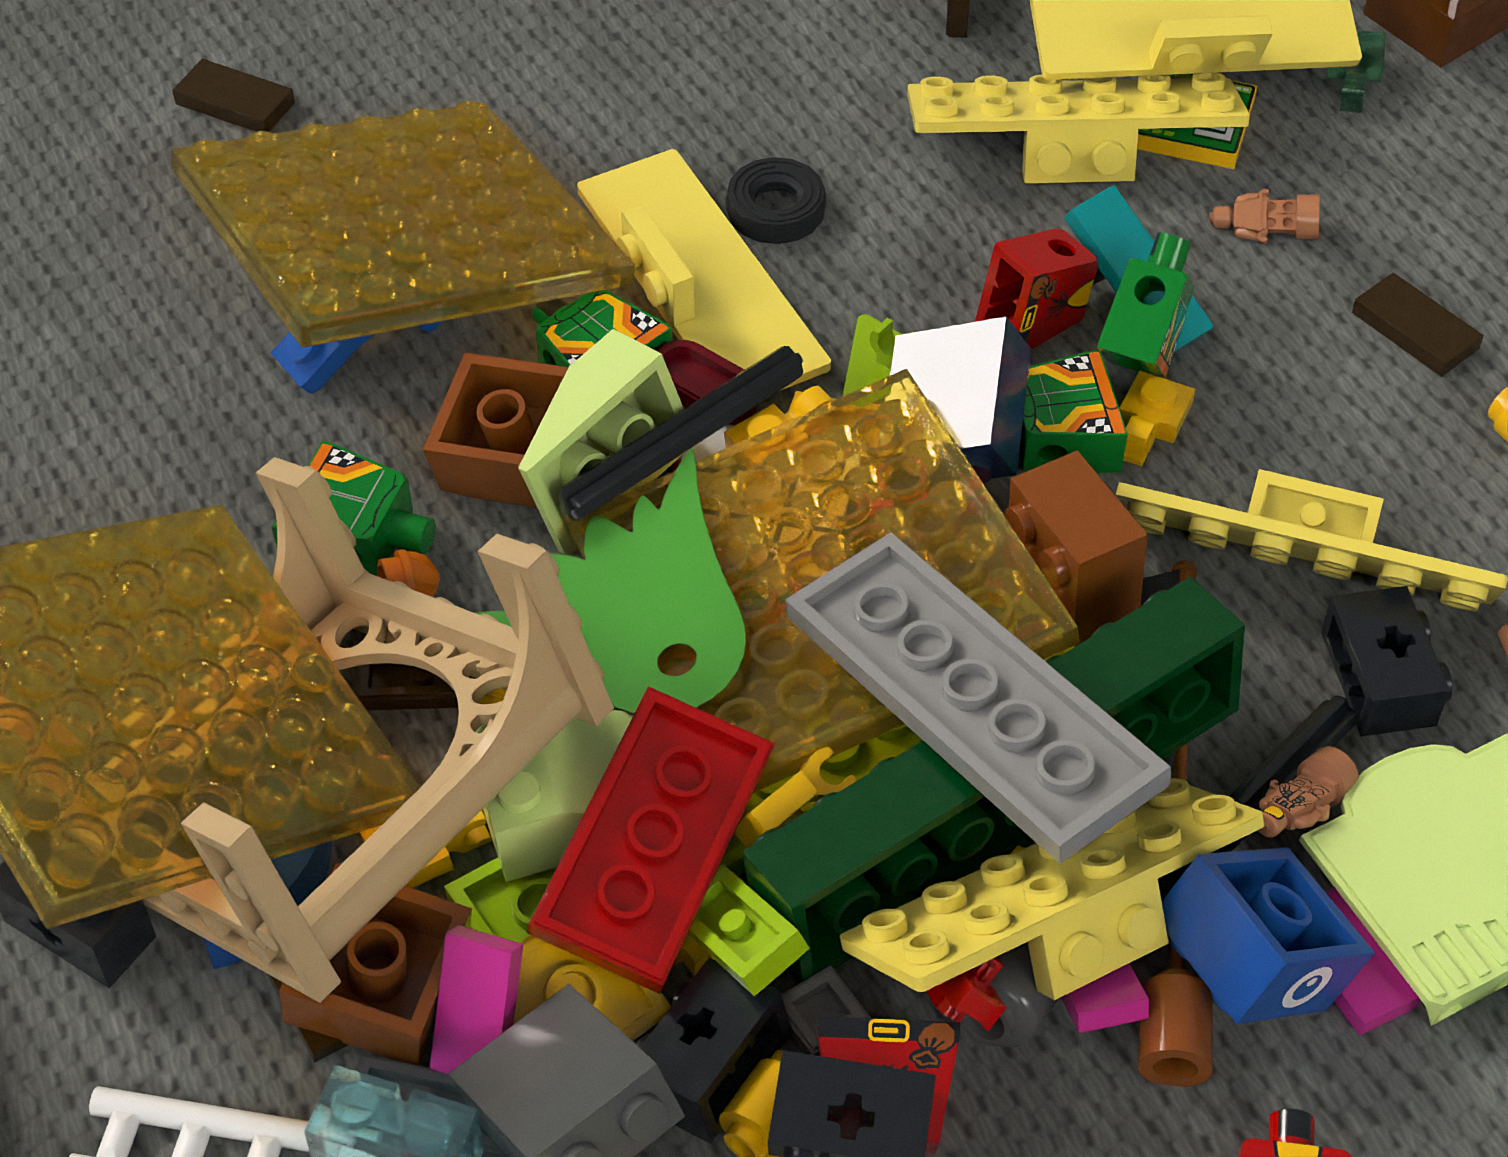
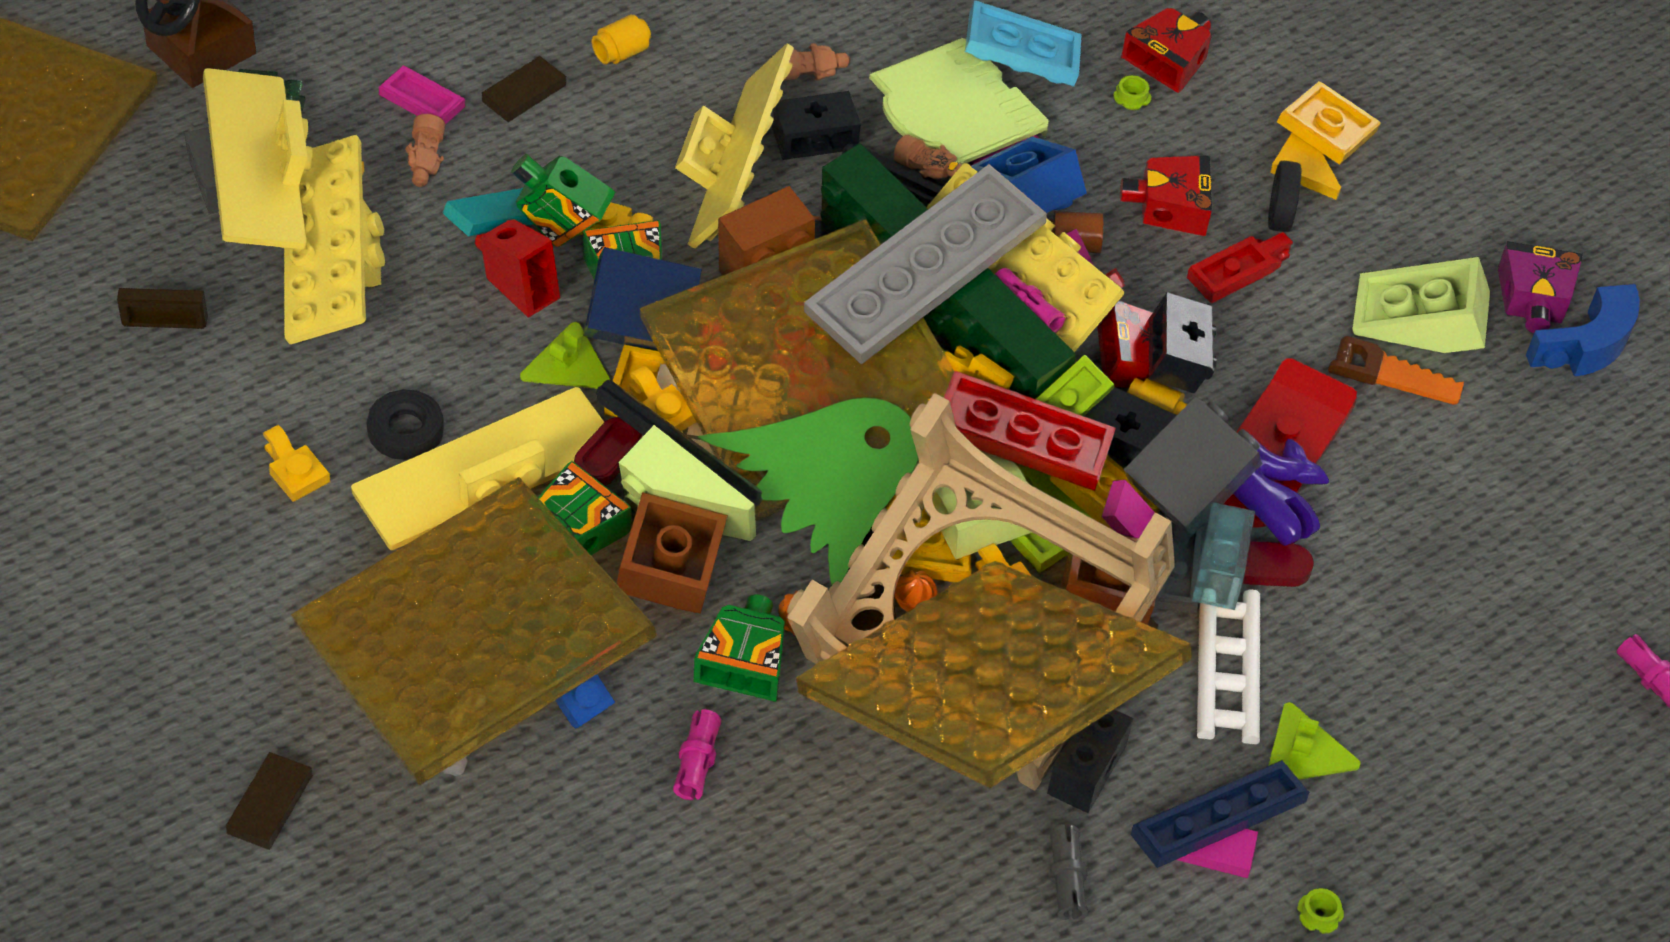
camera: 100 degrees left, 0 degrees up
(197, 462) = (697, 755): none -> dark pink pin
(426, 726) = (913, 589): none -> orange plate
(715, 109) = (294, 470): none -> yellow plate
(928, 865) = (1033, 299): none -> dark pink pin
(1381, 219) = (421, 95): none -> dark pink tile

